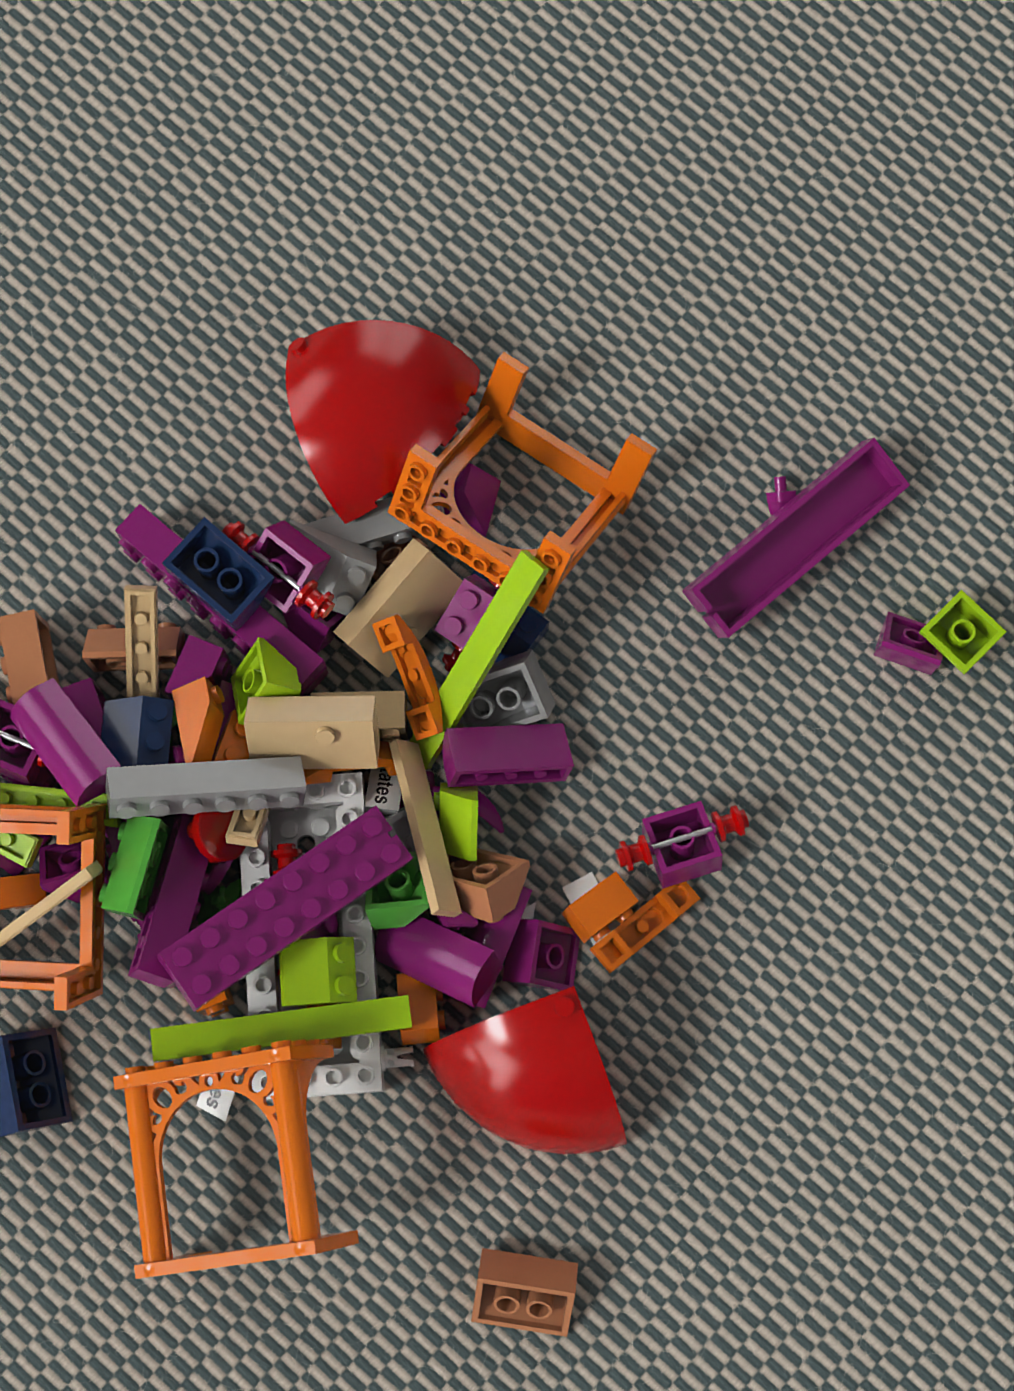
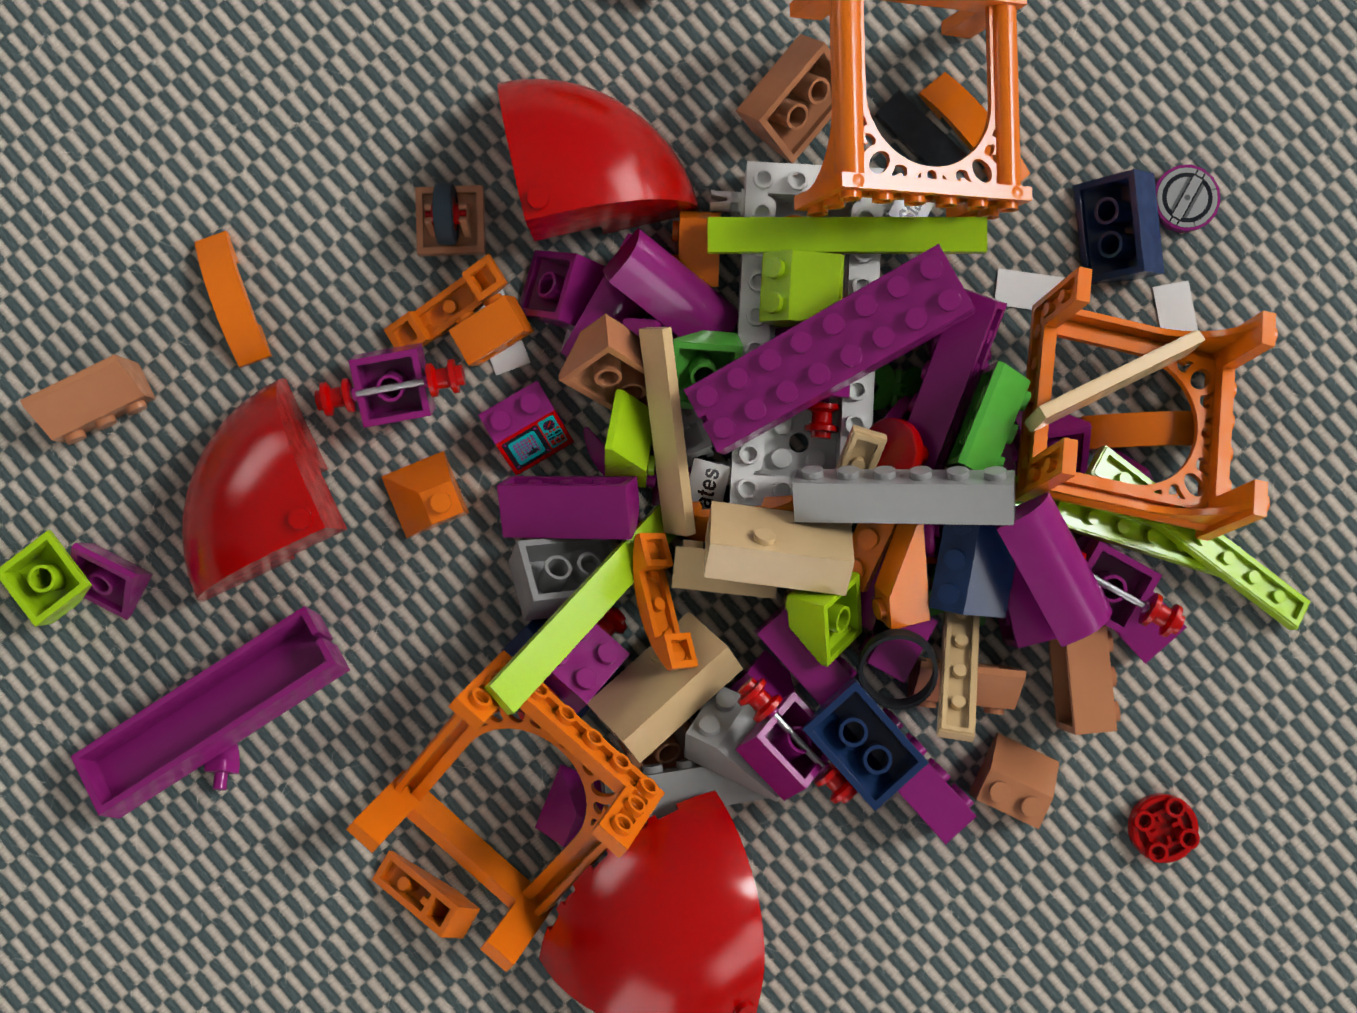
camera: 170 degrees left, 10 degrees up
(81, 570) = (1016, 780): none -> nougat slope
(101, 1016) = (1023, 288): none -> white sticker
(184, 1173) = (961, 111): none -> orange slope
(189, 616) = (903, 703): none -> black tyre
(220, 1147) = (918, 132): none -> black tile
(348, 1166) = (792, 99): none -> nougat slope
(556, 824) = (526, 428): none -> slope
(586, 410) = (426, 896): none -> orange slope
(639, 754) = (425, 494): none -> orange slope
(653, 1007) = (450, 220): none -> nougat plate
(787, 729) = (256, 495): none -> red brick
(846, 909) = (230, 299): none -> orange slope
(951, 795) = (90, 399): none -> nougat slope

